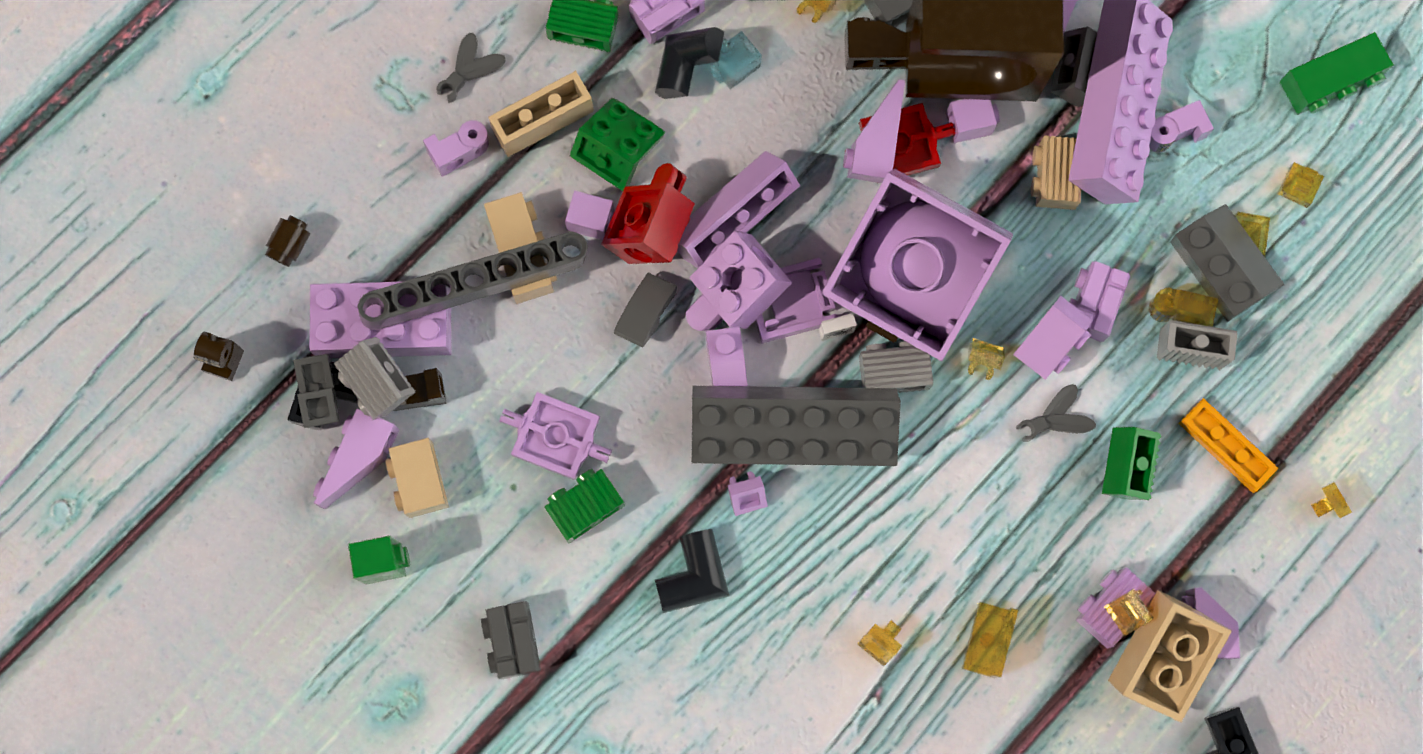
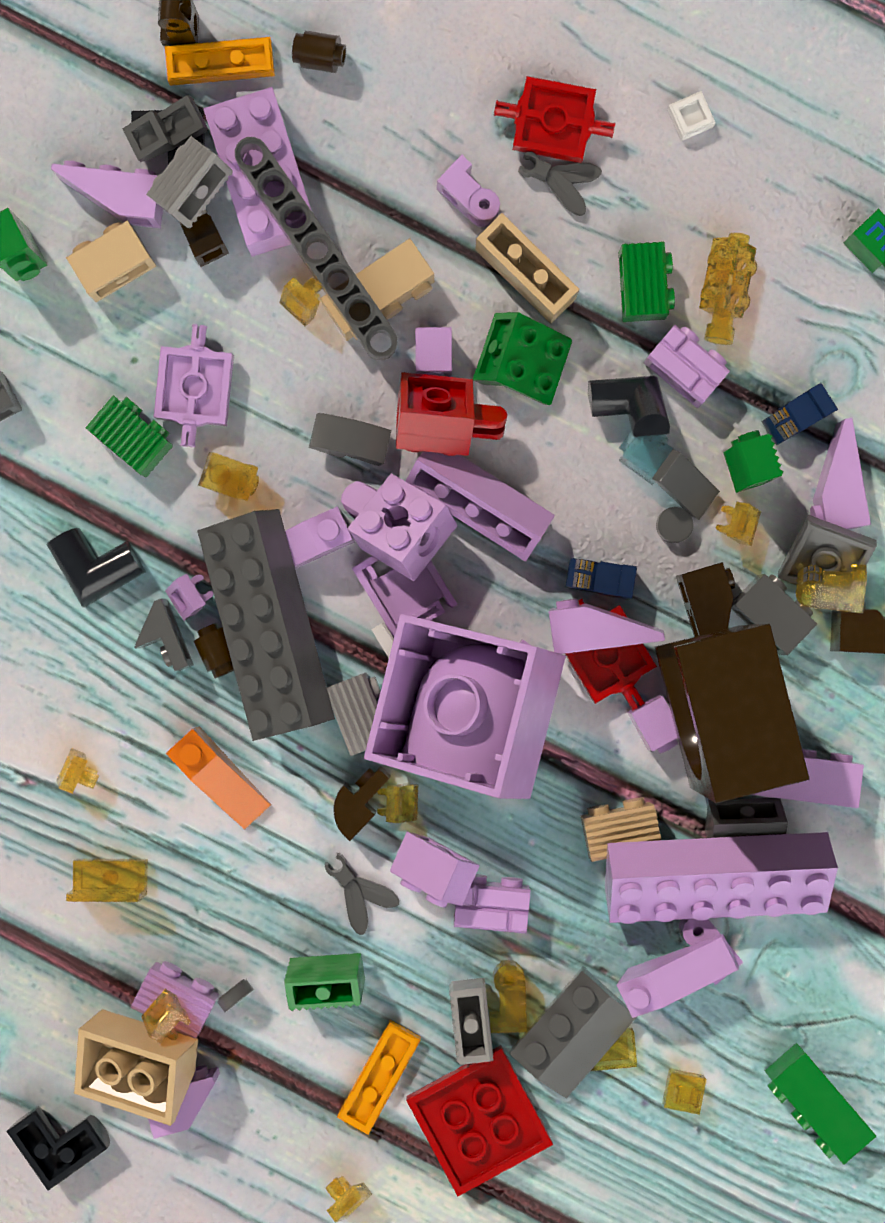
camera: 80 degrees right, 10 degrees up
(264, 332) = (219, 61): none -> light orange tile
(415, 57) = (554, 119): none -> red plate
(507, 317) = (301, 299): none -> clear yellow tile
(649, 425) = (229, 477): none -> clear yellow bracket
(768, 524) = (163, 626): none -> dark grey slope
(770, 34) = (685, 484): none -> dark grey tile
(801, 56) = (674, 525): none -> dark grey tile
(804, 481) = (214, 650): none -> dark brown brick
(832, 127) = (601, 578): none -> dark blue leg
(919, 512) = (218, 777): none -> orange slope
(977, 399) = (352, 806): none -> dark brown brick
(1124, 551) = (235, 995): none -> dark grey tile
(1197, 158) = (675, 975): none -> lavender slope
(1288, 366) = (479, 1121): none -> red plate

